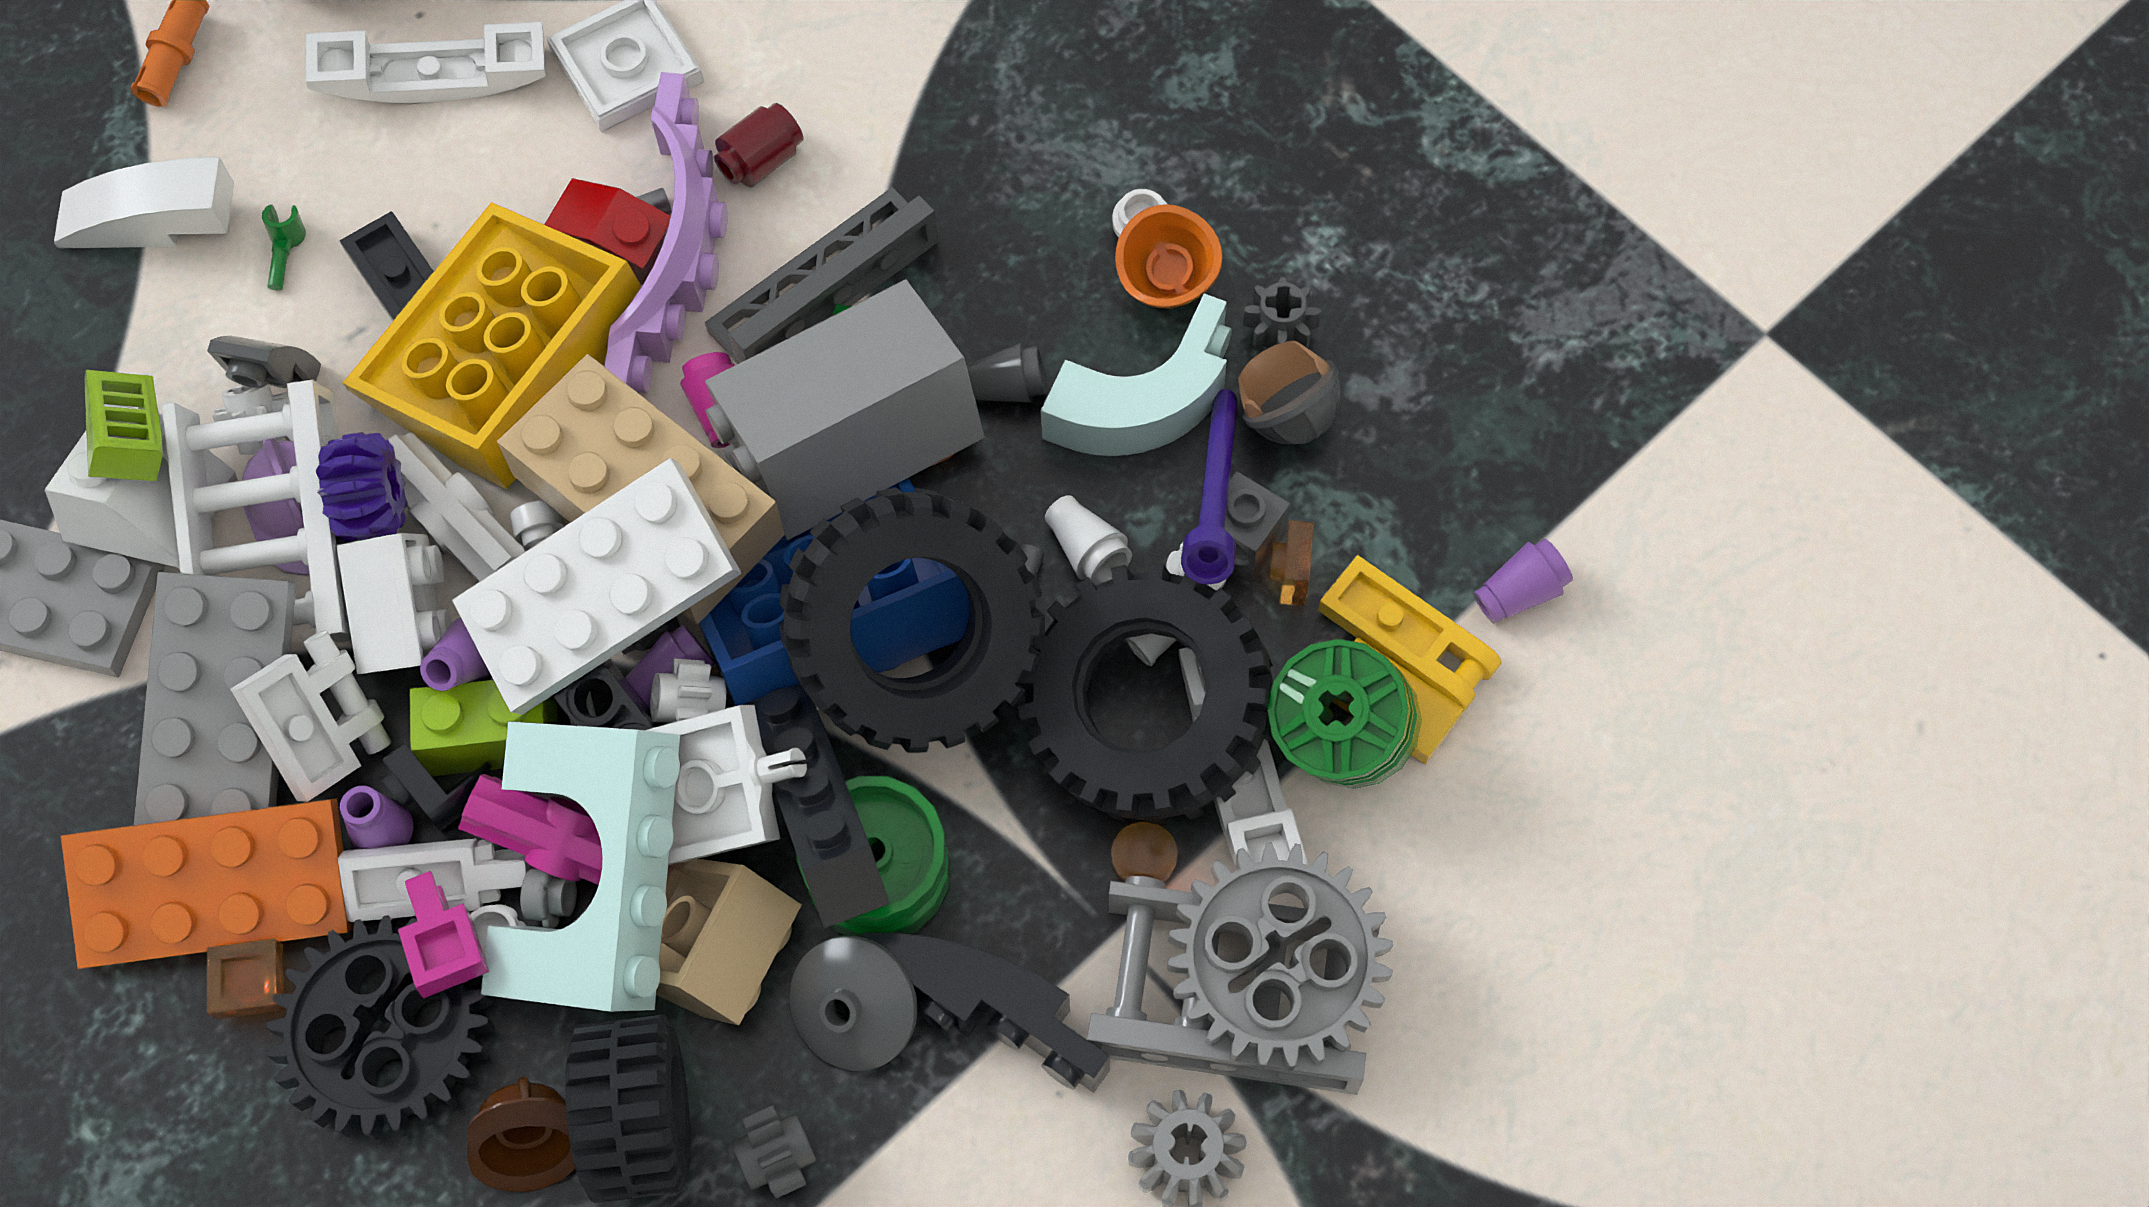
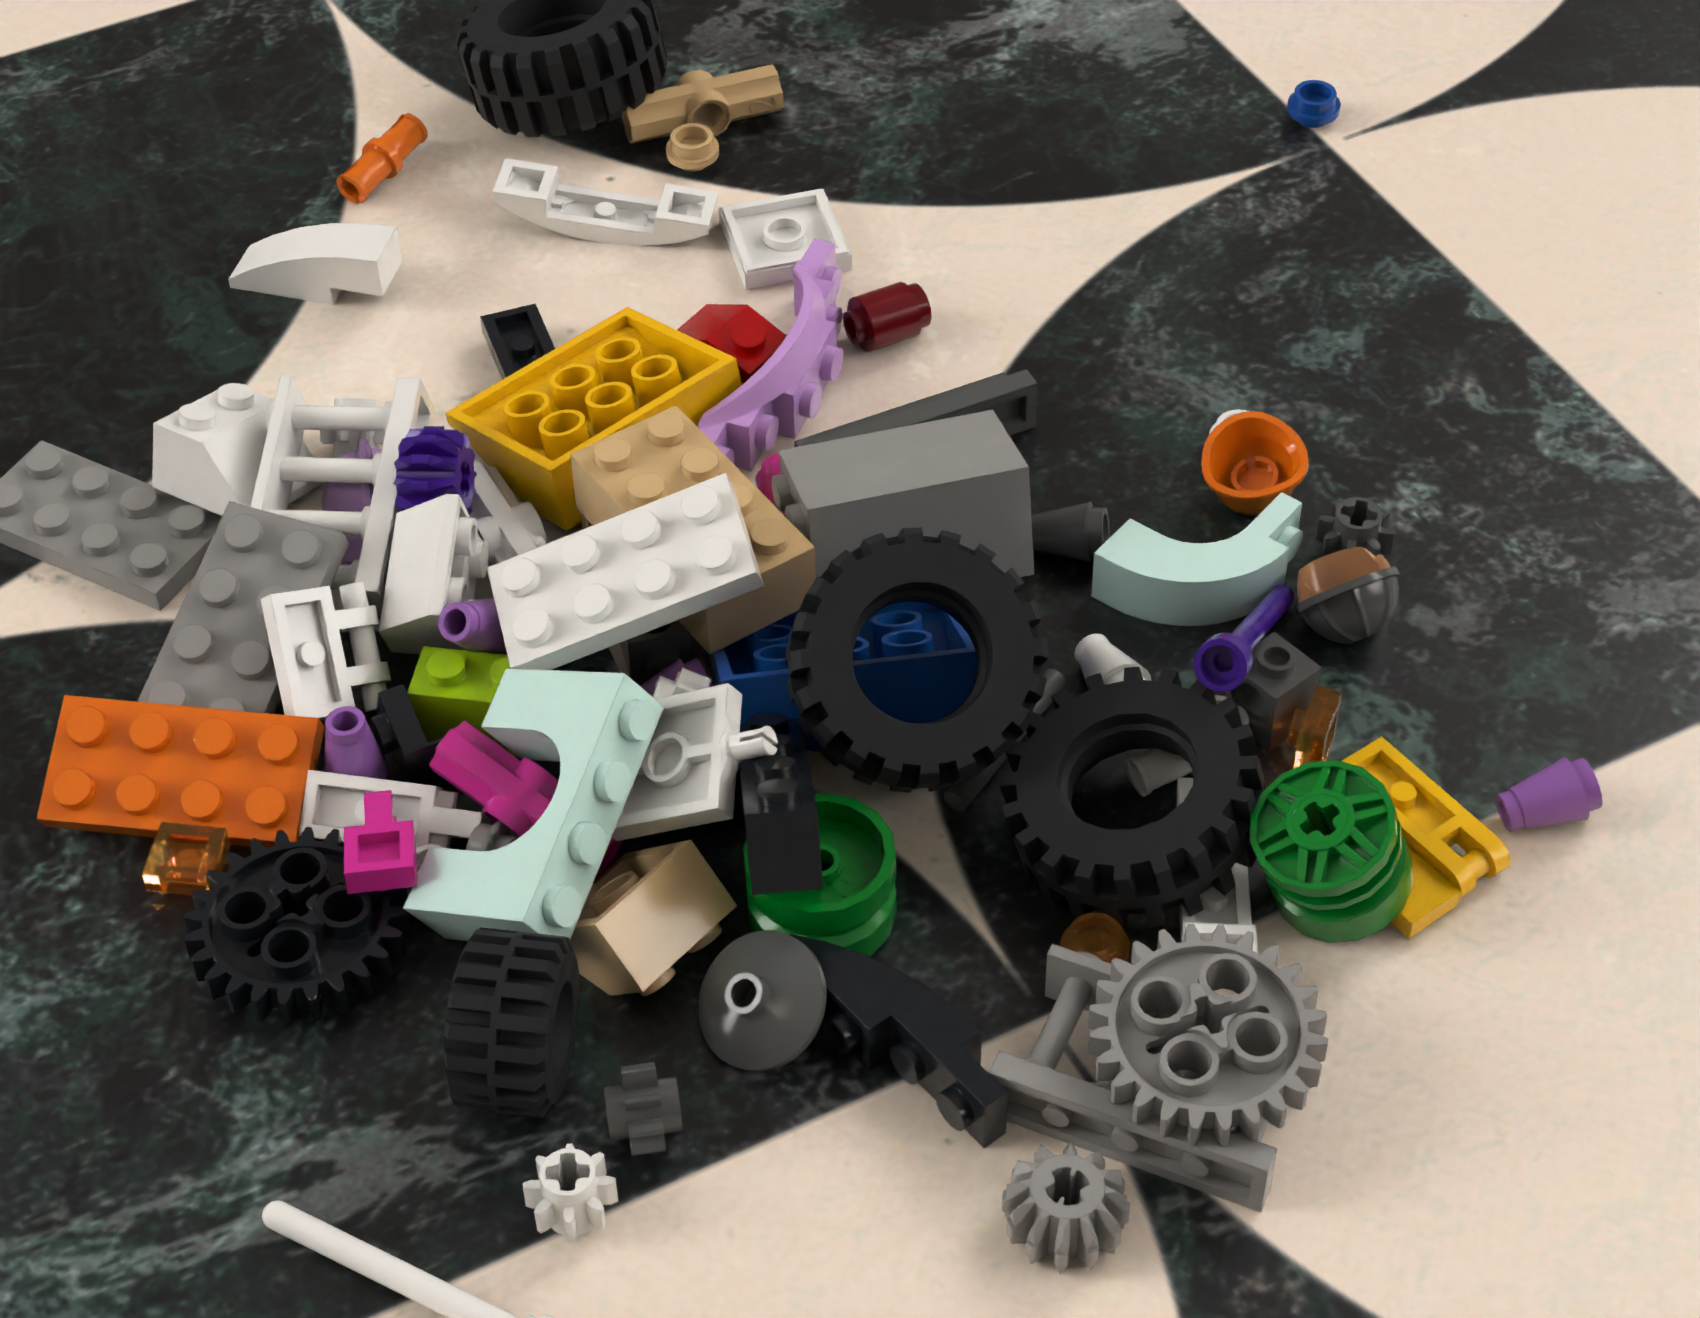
camera: 15 degrees right, 20 degrees down
(120, 456) = (238, 392): lime slope -> none
(256, 362) = (370, 371): dark grey slope -> none
(283, 238) = (432, 309): green hand -> none
(520, 1138) = (397, 1032): reddish brown piece -> none

